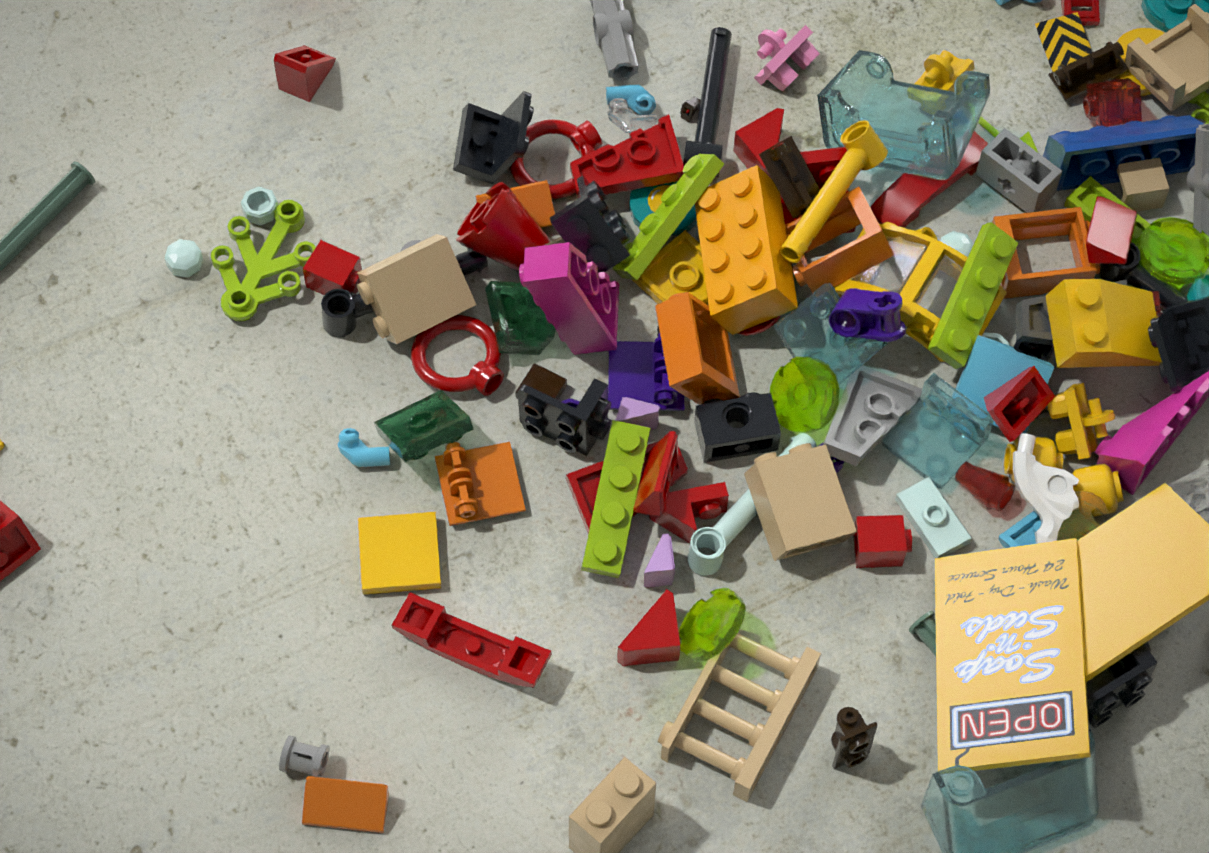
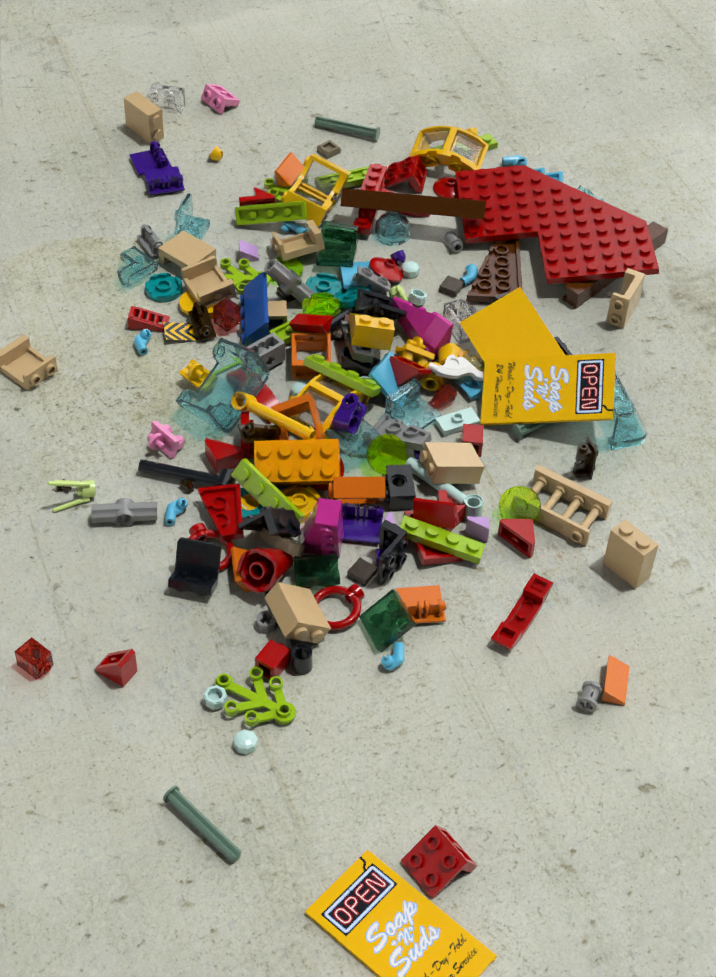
camera: 85 degrees left, 15 degrees down
(399, 553) = (461, 645): yellow tile -> none
(626, 119) = (189, 515): clear arm -> none

